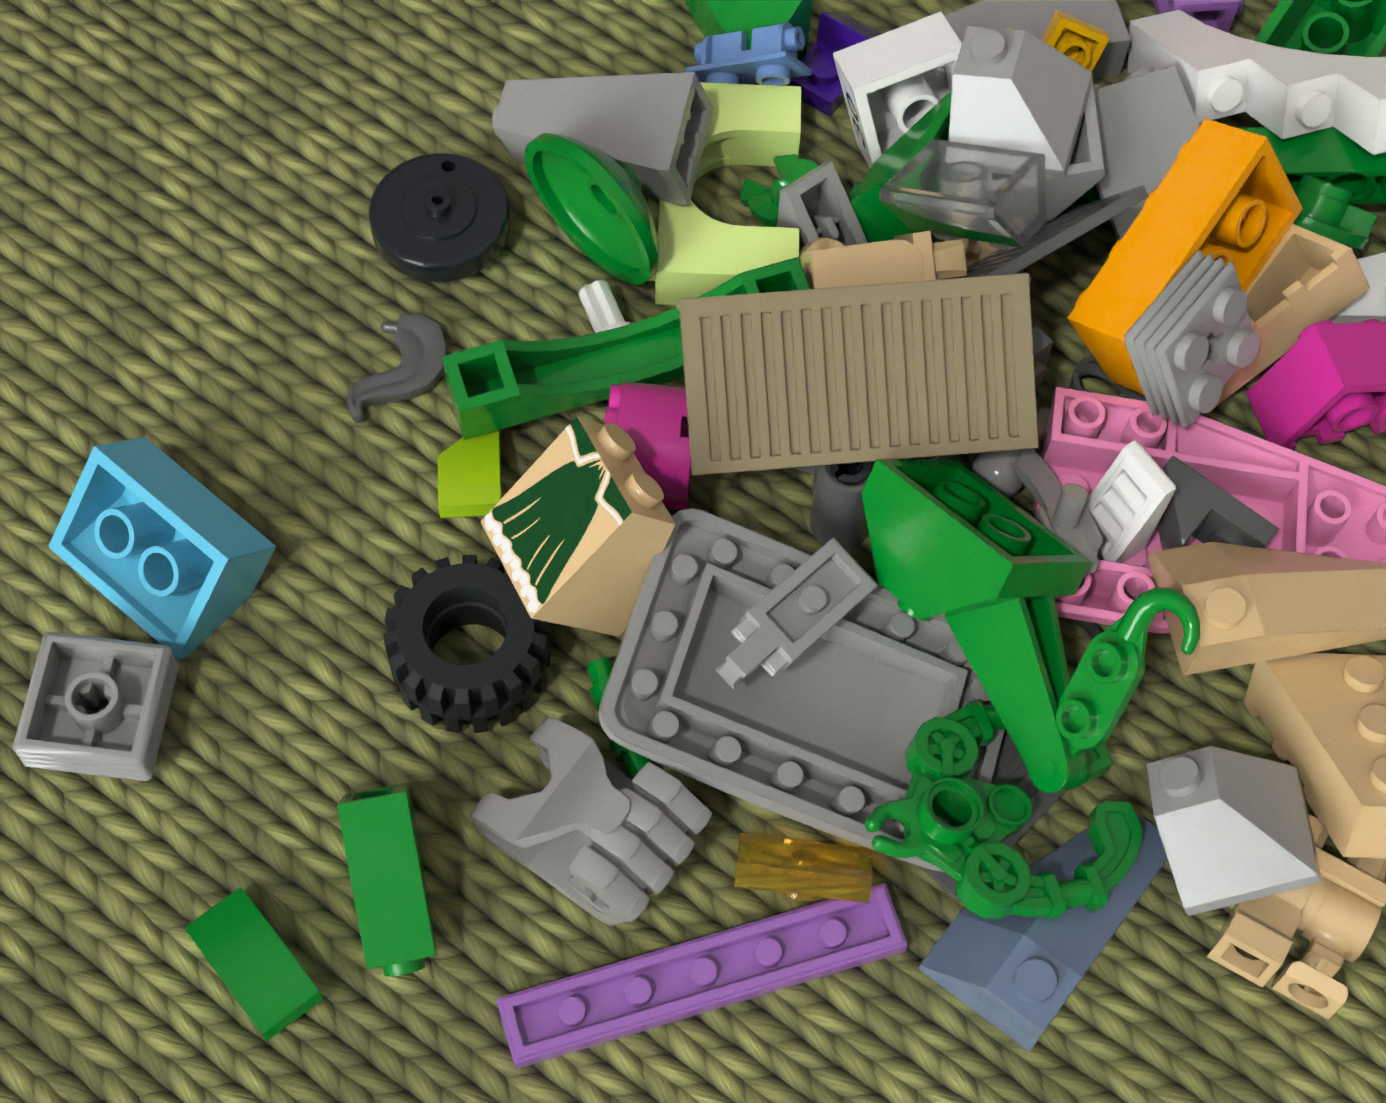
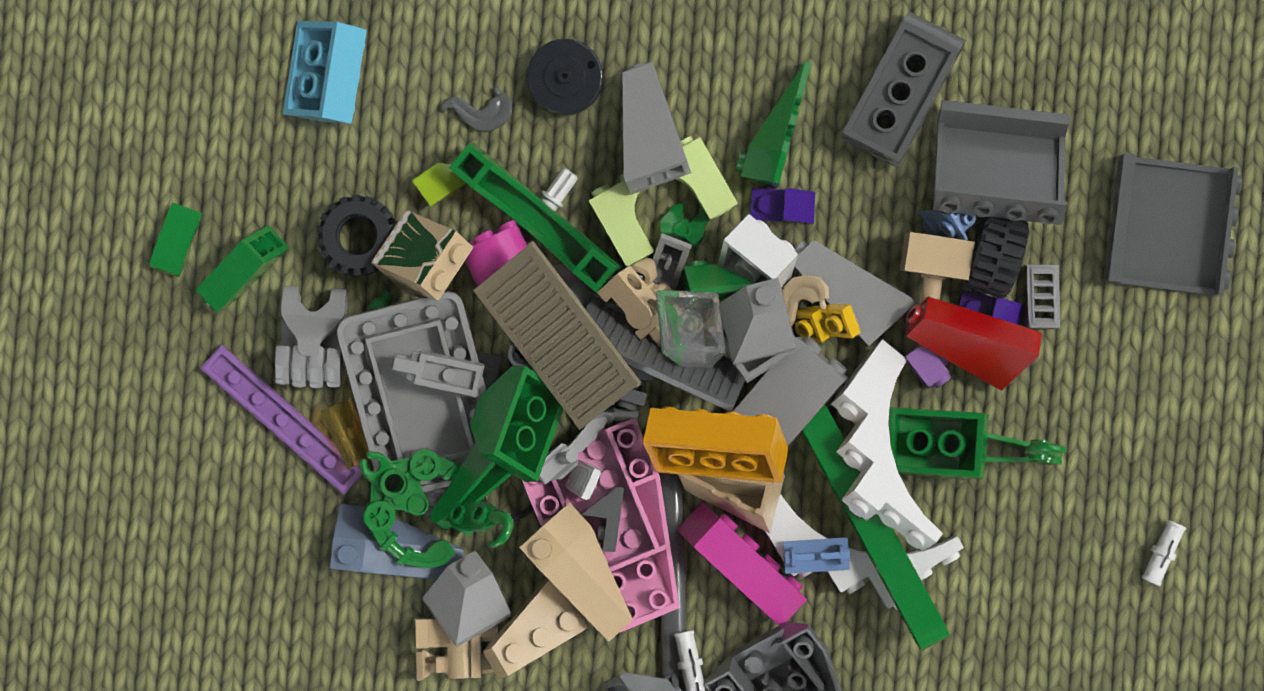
camera: 65 degrees right, 25 degrees up
(75, 675) = (217, 93): light grey brick -> none
(595, 205) = (601, 156): green dish -> none
(768, 62) = (738, 180): medium blue hinge -> none
(1192, 340) = (669, 470): light grey brick -> none
(1329, 213) = (804, 487): green piece -> none

